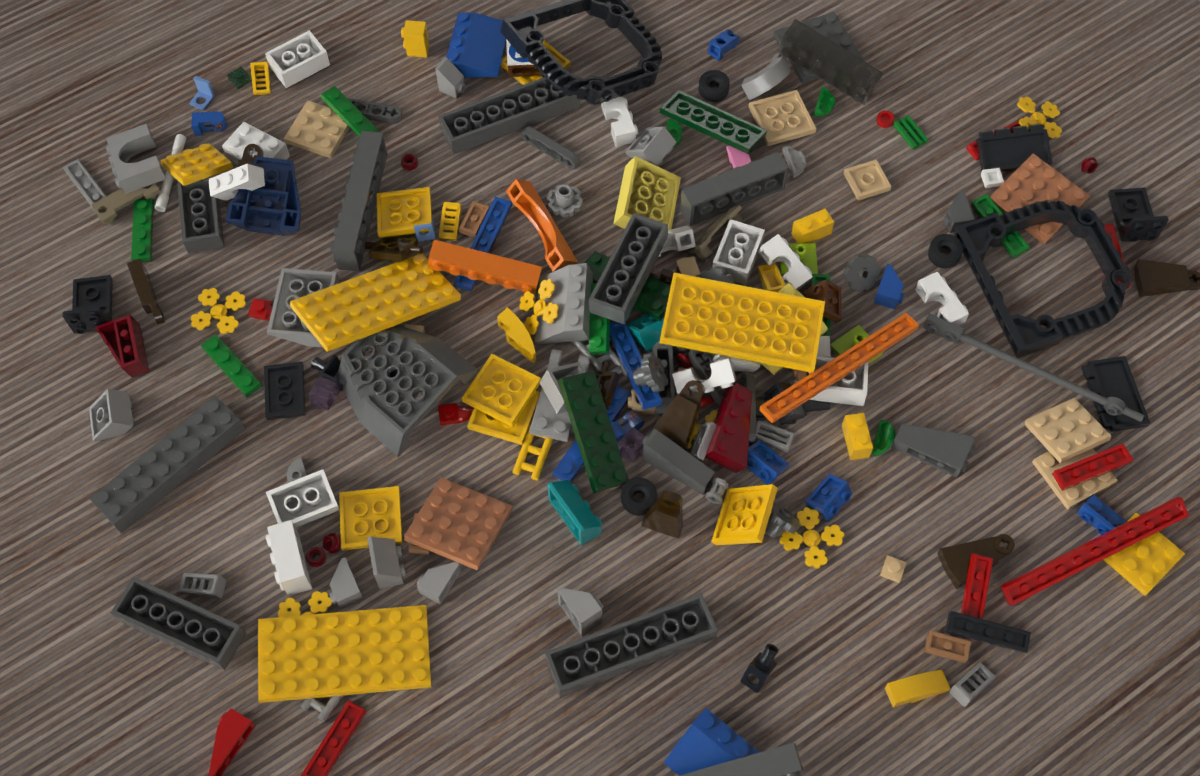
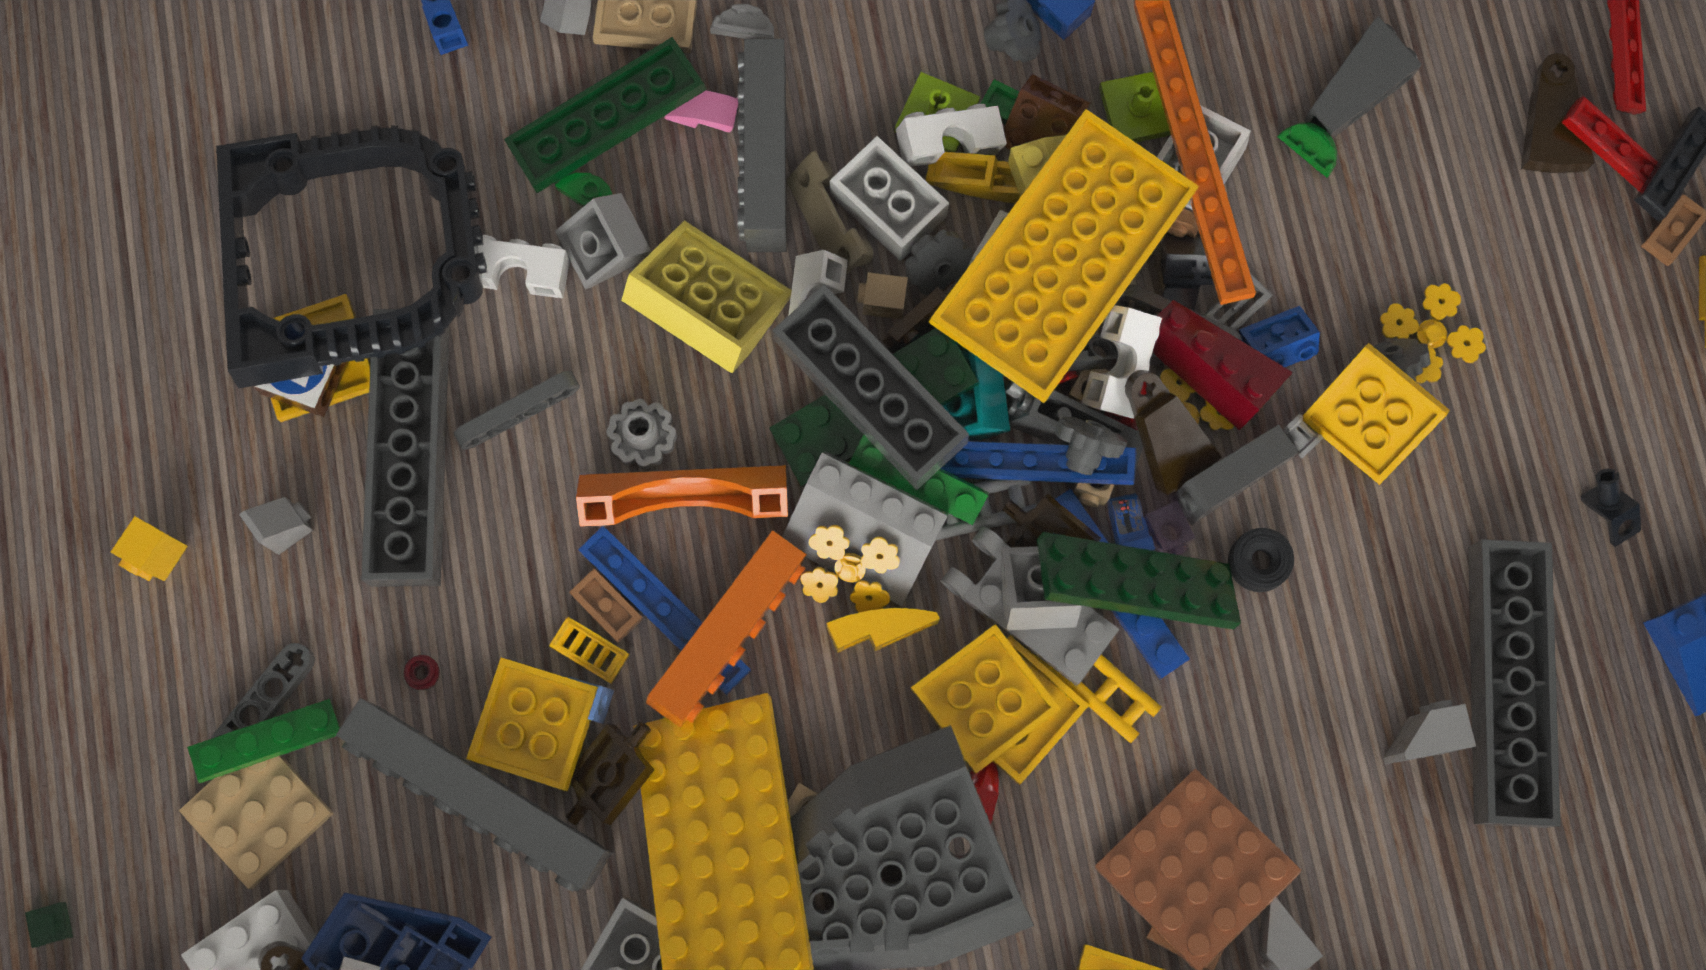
camera: 70 degrees left, 15 degrees up
(256, 67) = (47, 872): yellow slope -> none
(297, 59) = (73, 794): white brick -> none
(477, 45) = (222, 441): blue slope -> none
(574, 511) = (1253, 671): teal slope -> none
(665, 515) = (1330, 537): dark brown piece -> none
(703, 440) = (1220, 415): light grey tile -> none
(714, 94) = (524, 59): black tyre -> none
(813, 227) = (893, 60): yellow brick -> none
(829, 496) = (1376, 275): blue bracket -> none
(857, 436) = (1298, 183): yellow brick -> none
(893, 569) = (1525, 242): tan plate -> none

